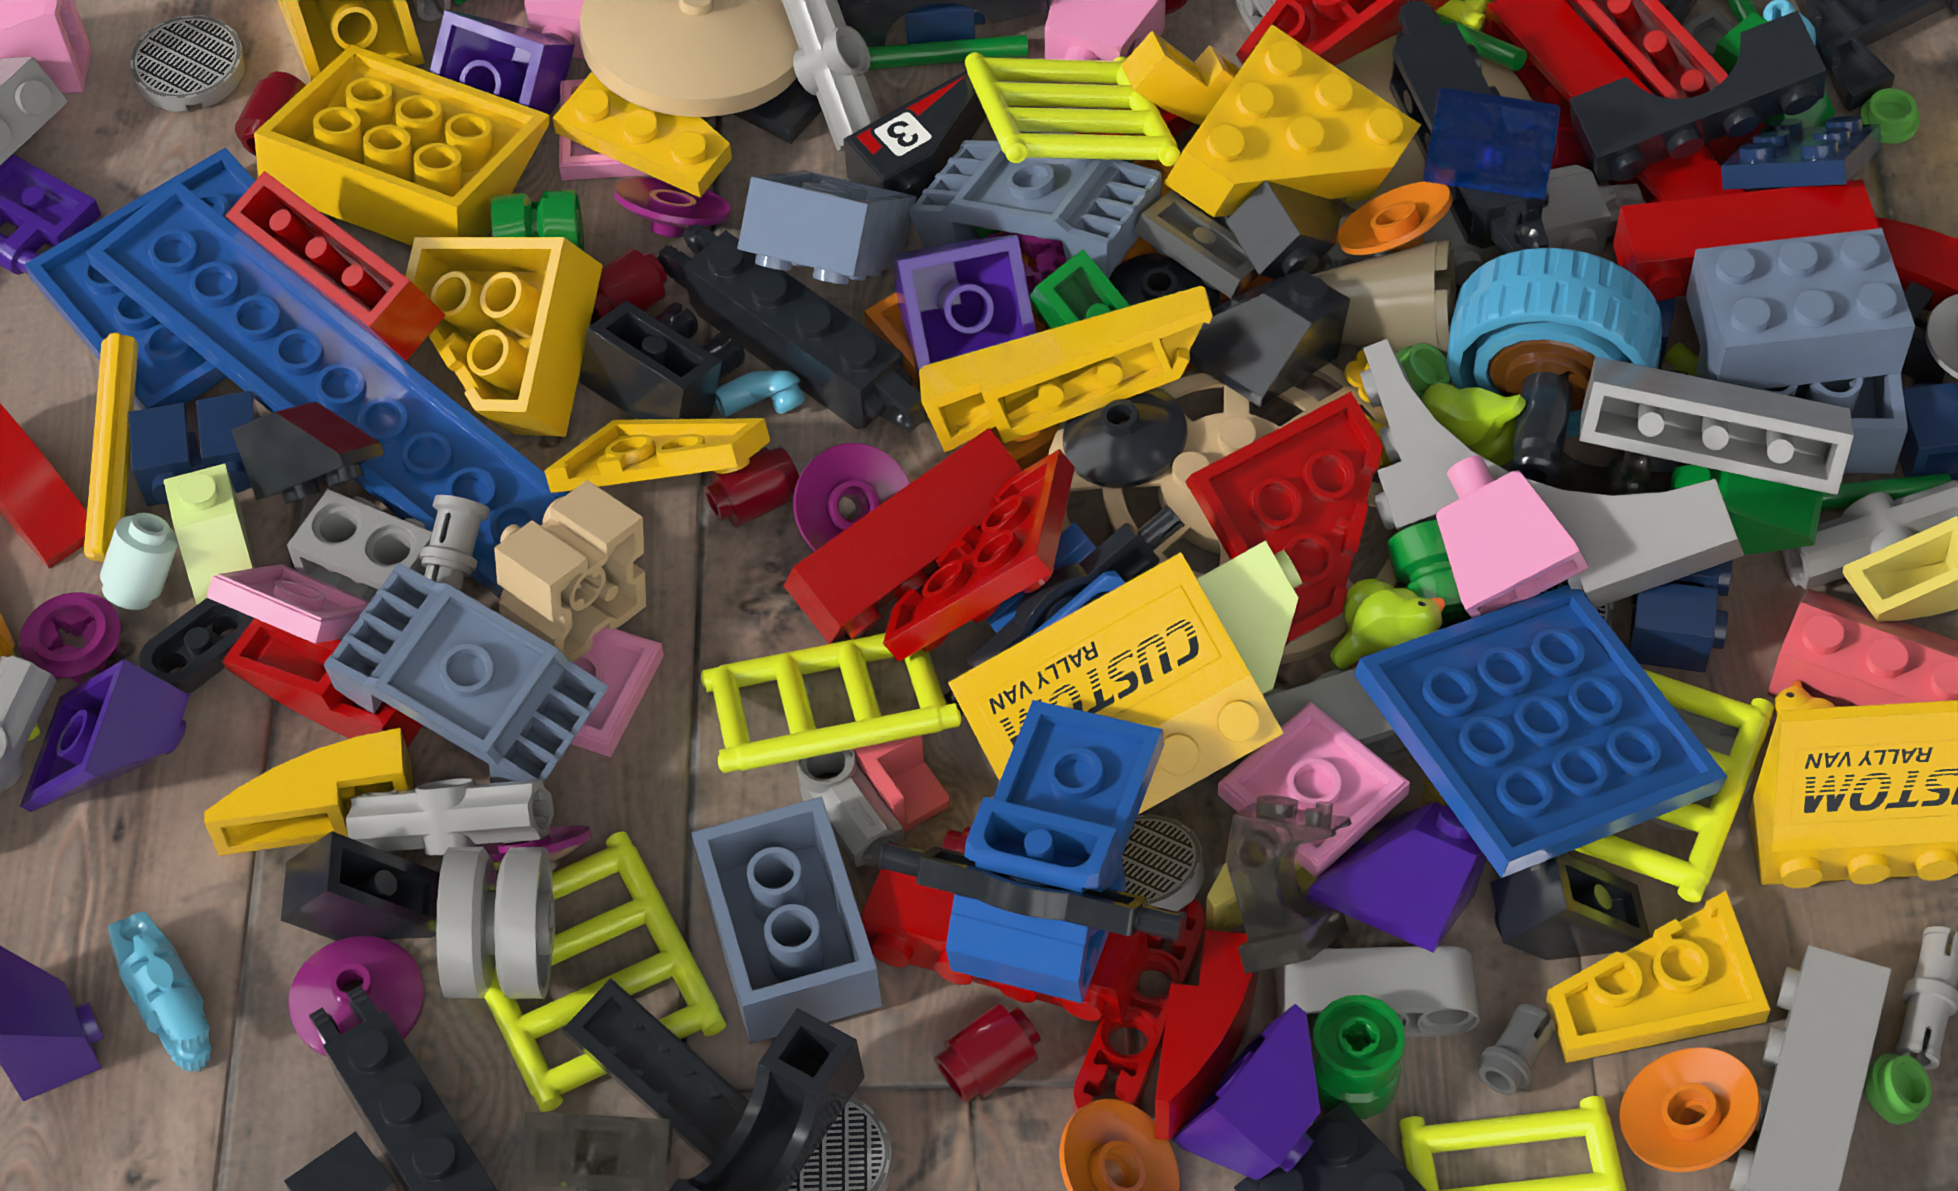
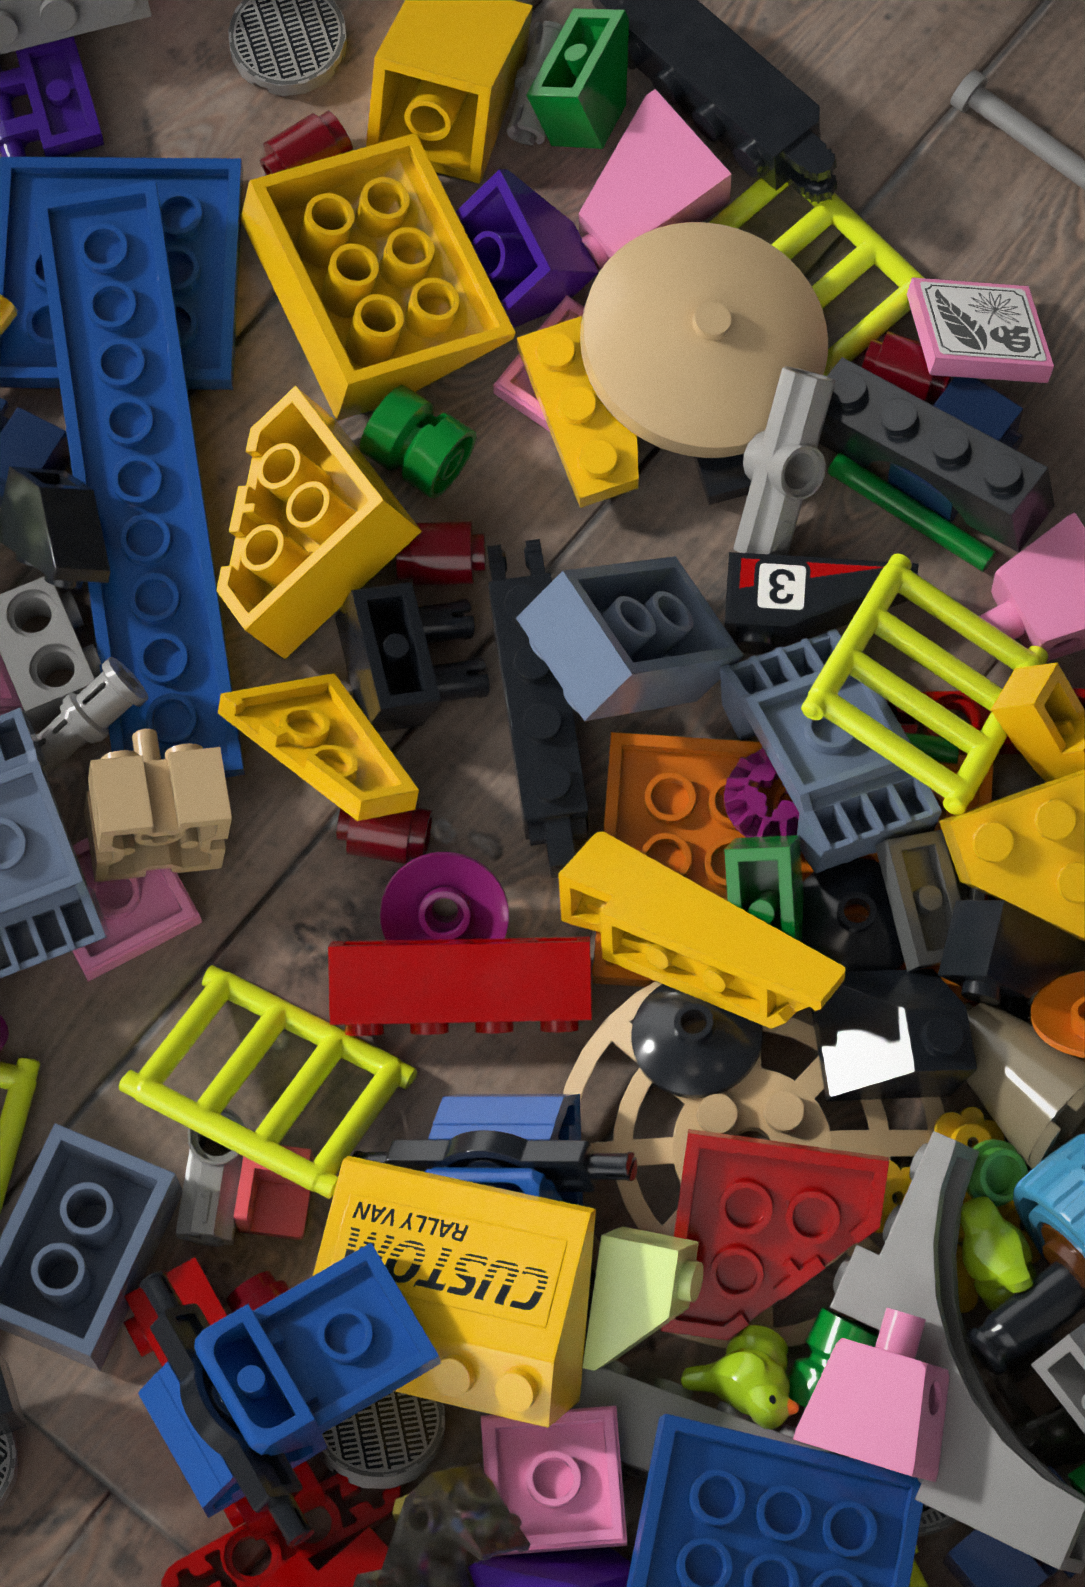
camera: 40 degrees right, 15 degrees up
(336, 265) = (206, 369): red brick -> none
(670, 207) = (541, 500): magenta dish -> none
(758, 386) = (476, 735): medium azure arm -> none
(962, 297) = (678, 797): dark purple slope -> none
(988, 565) = (485, 1070): red plate -> none
(988, 1052) = (135, 1481): dark red brick -> none

